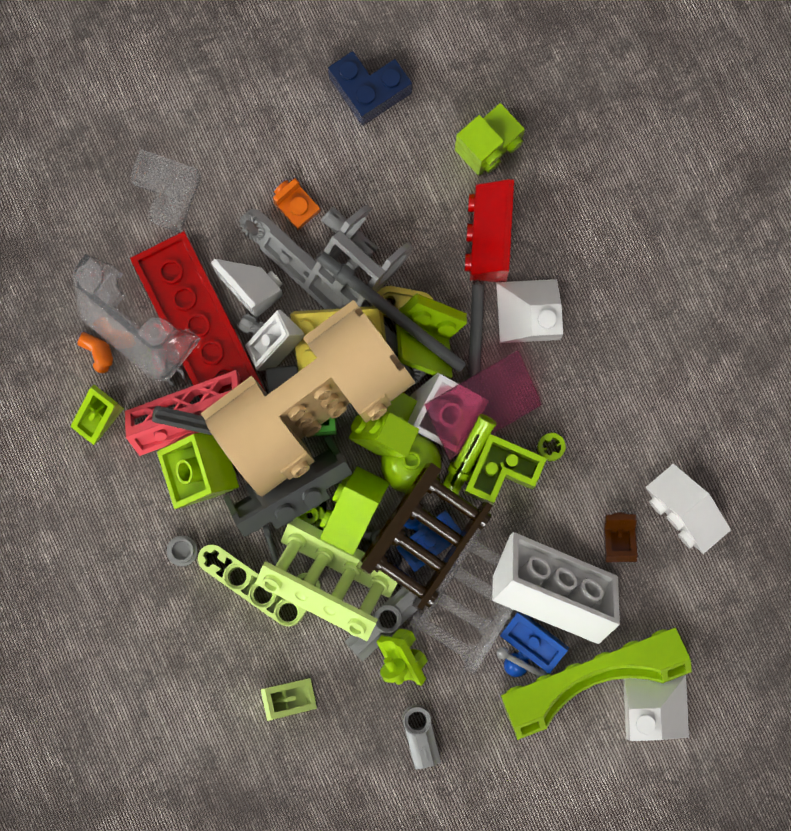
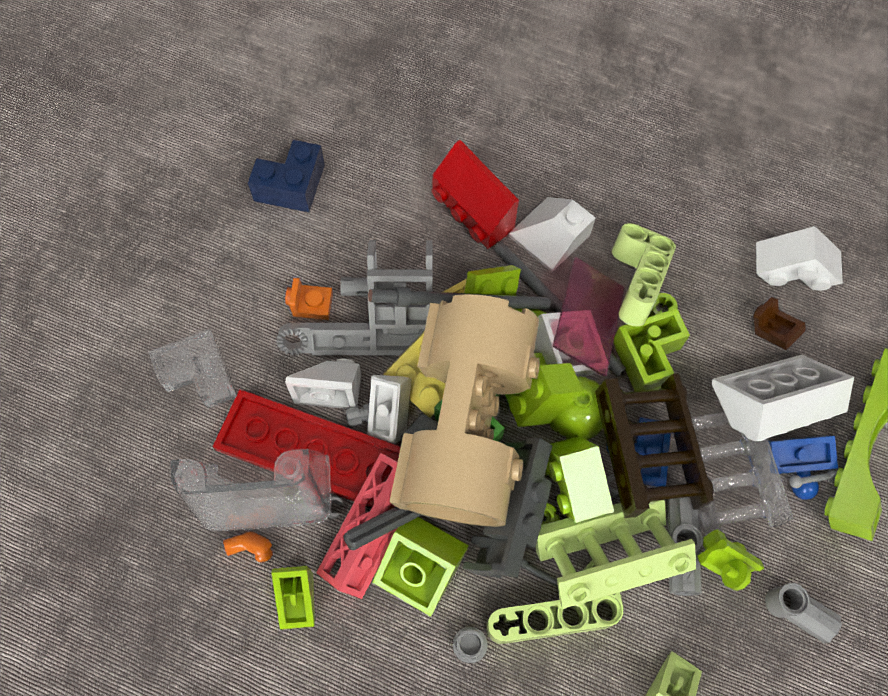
camera: 45 degrees left, 15 degrees down
(483, 428) = (616, 355): lime pin -> none
(488, 139) = (411, 145): lime brick -> none
(549, 414) = (651, 257): none -> yellowish green beam

